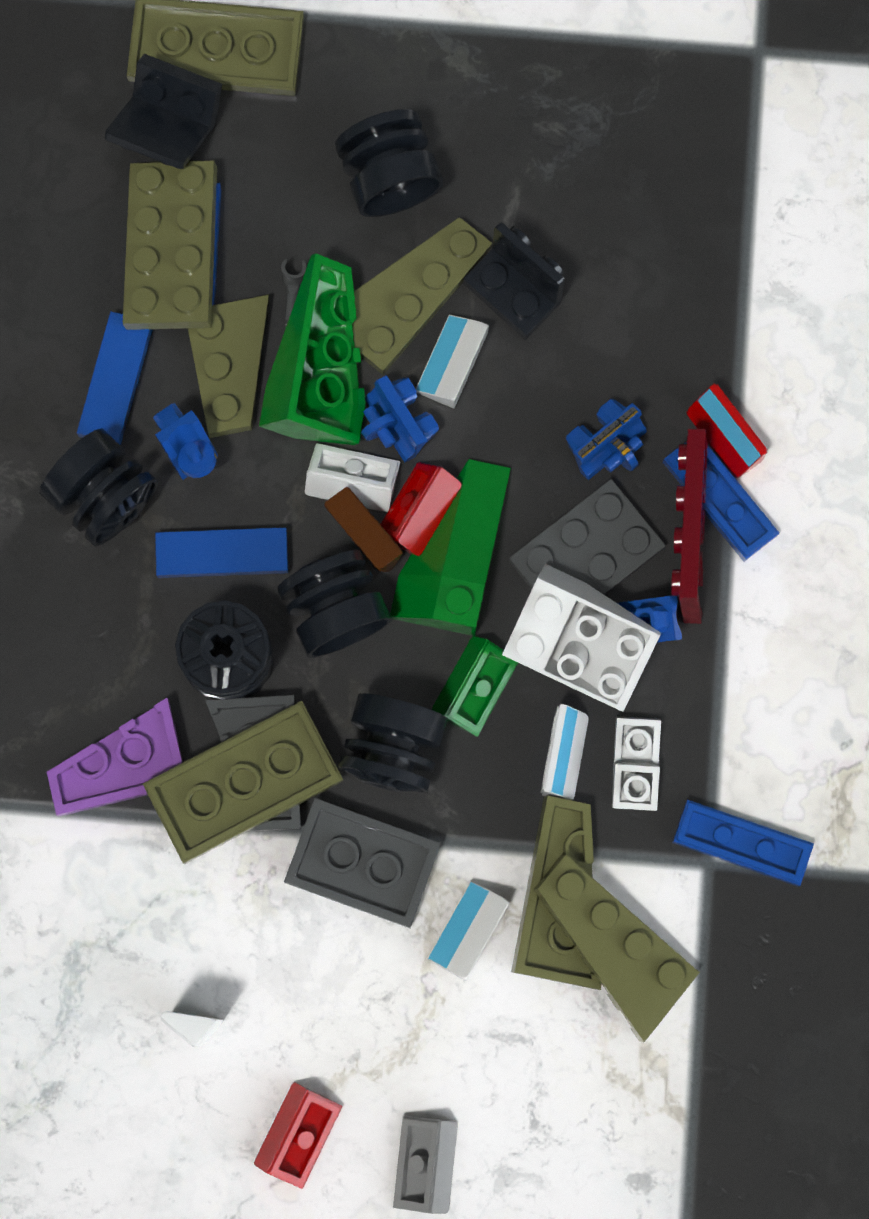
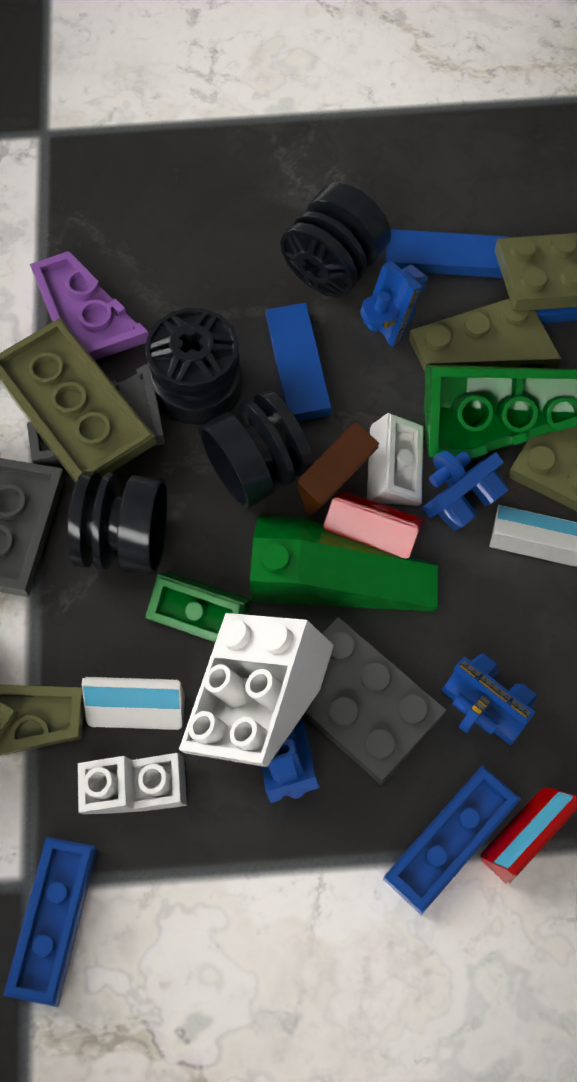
camera: 85 degrees right, 15 degrees down
(688, 538) = (405, 798): dark red wing -> none

